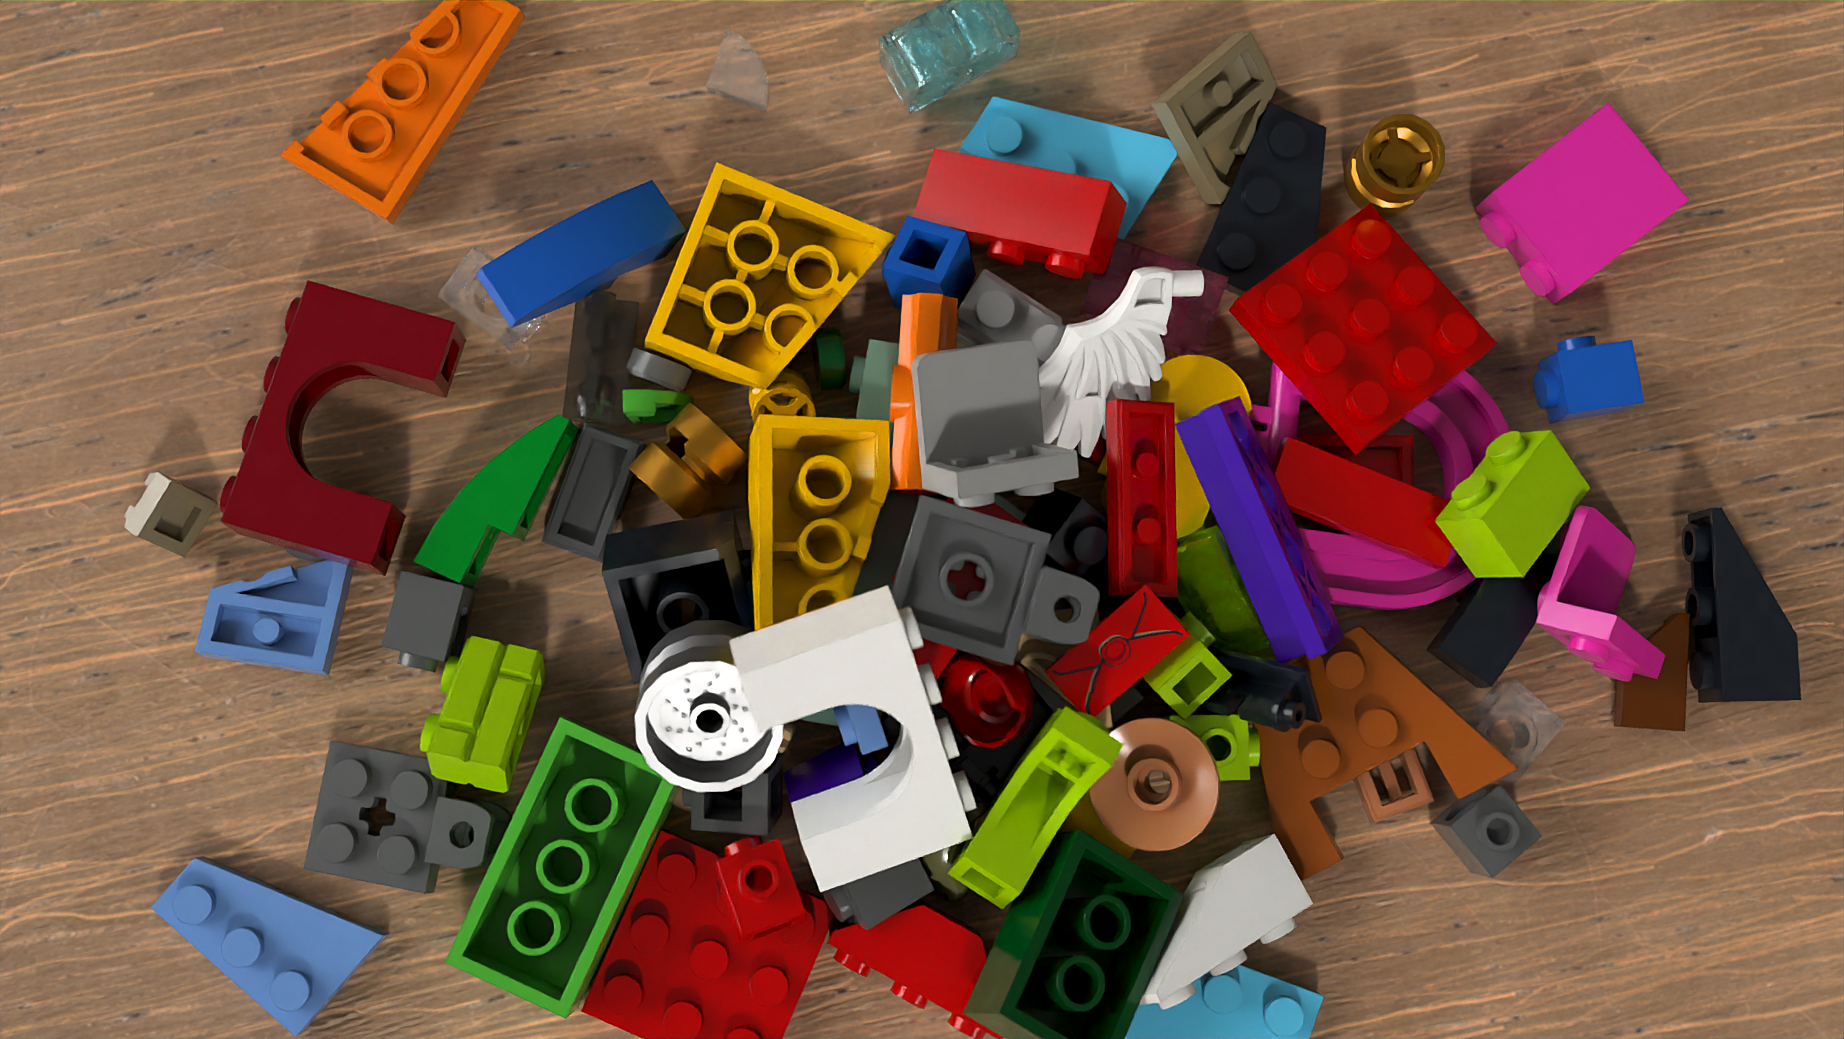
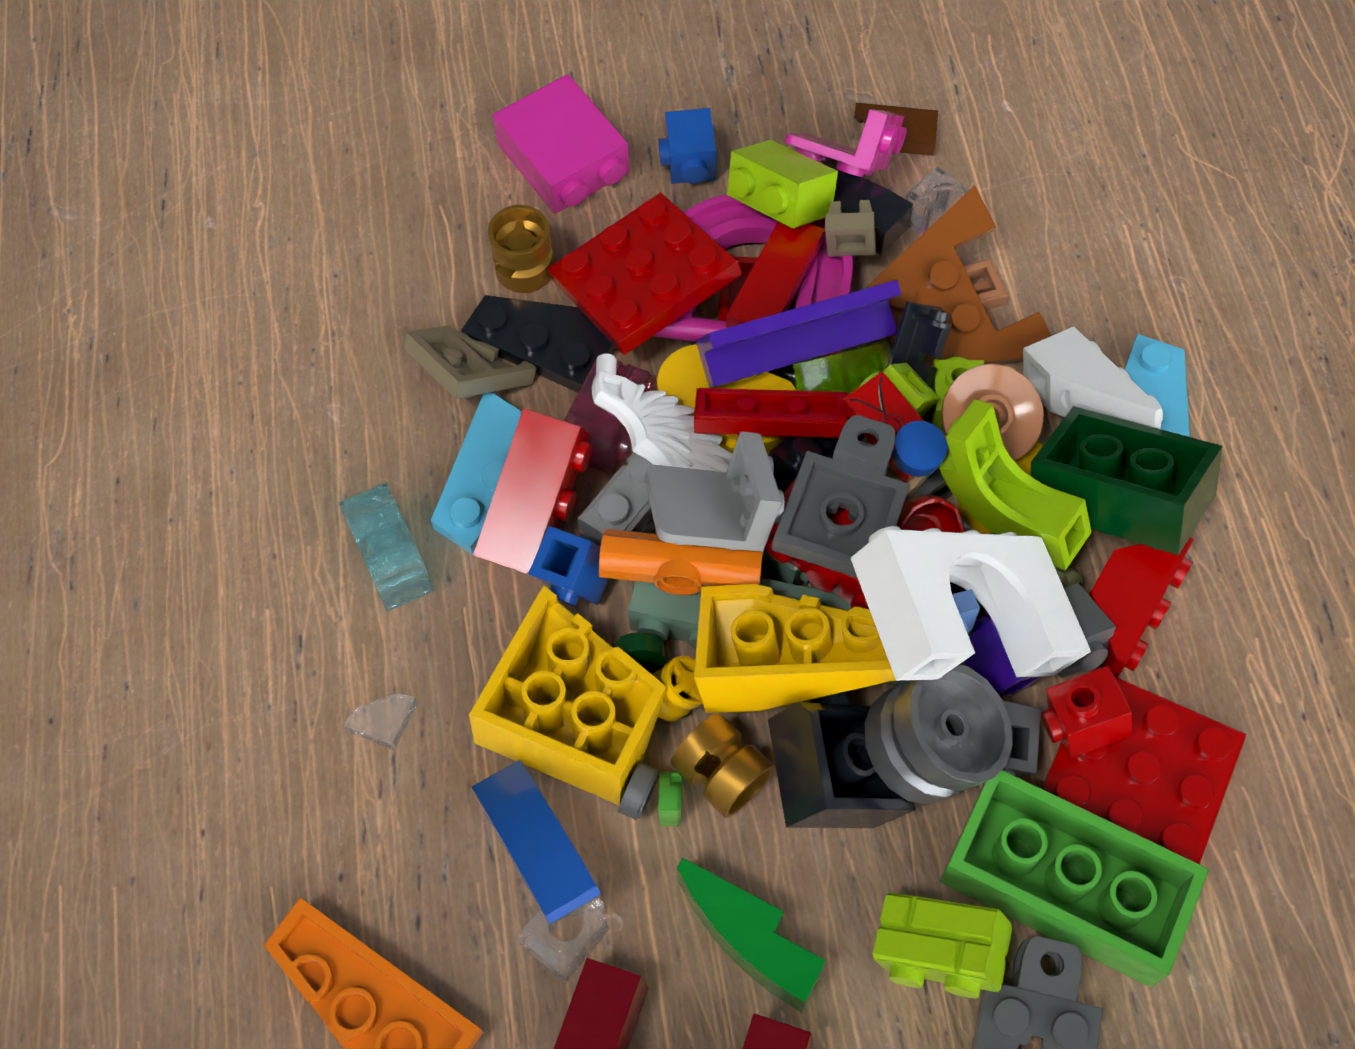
camera: 80 degrees left, 20 degrees down
(427, 620) = (856, 1001): dark grey brick -> none
(593, 492) = (742, 855): dark grey tile -> none
(598, 357) = (626, 844): clear smoke hinge -> none
(1079, 681) = (919, 448): none -> blue tile
(1433, 600) = (850, 232): none -> dark tan tile
(1486, 830) = (1018, 222): dark grey brick -> none
(1740, 630) = (869, 72): black slope -> none

